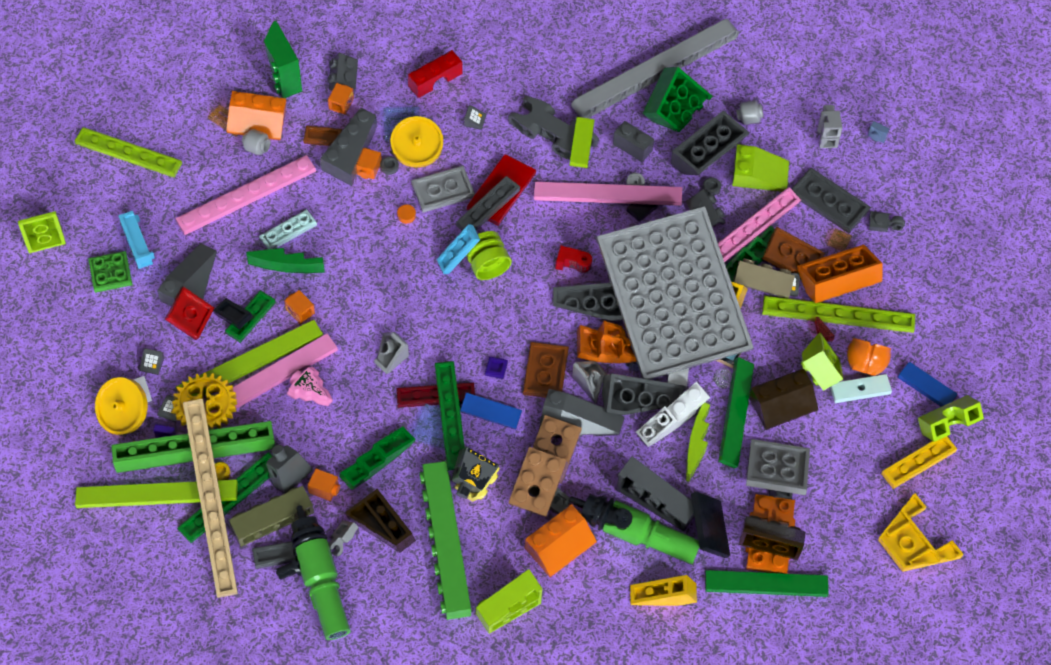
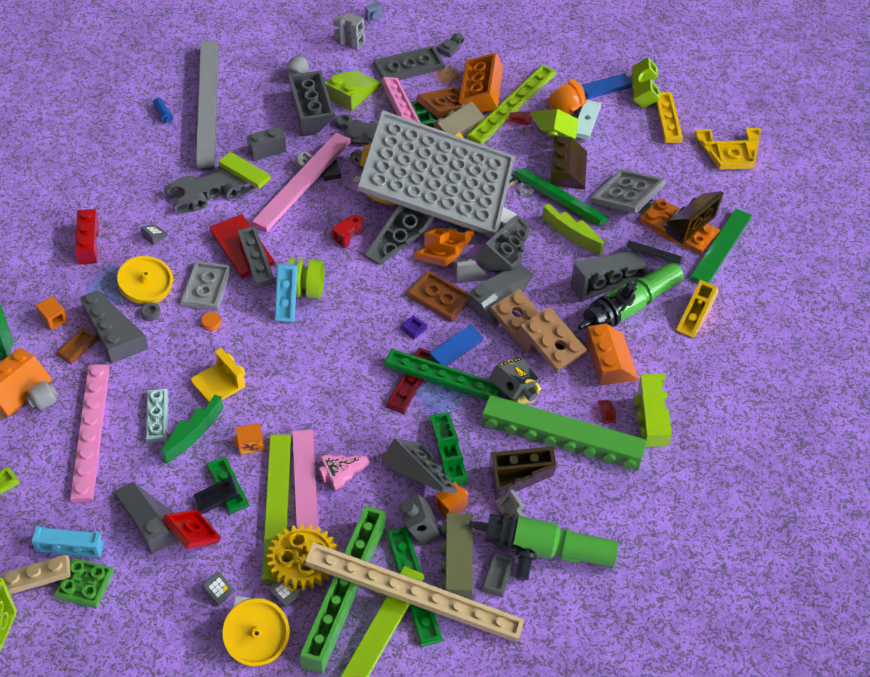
camera: 60 degrees left, 10 degrees down
(97, 236) = (37, 574): none -> tan plate
(163, 431) = (309, 608): dark purple tile -> none
(340, 442) = (418, 464): none -> dark grey wedge
(342, 71) = (21, 301): dark grey bracket -> none
(346, 253) = (220, 379): none -> yellow bracket
(368, 163) = (141, 320): orange brick -> none
(392, 352) = (345, 389): light grey slope -> none
(496, 565) = (607, 411): none -> clear red piece
(619, 45) = (164, 113): none -> blue piece
(673, 416) = (540, 231): white slope -> none
(675, 99) = (247, 102): green wedge -> none

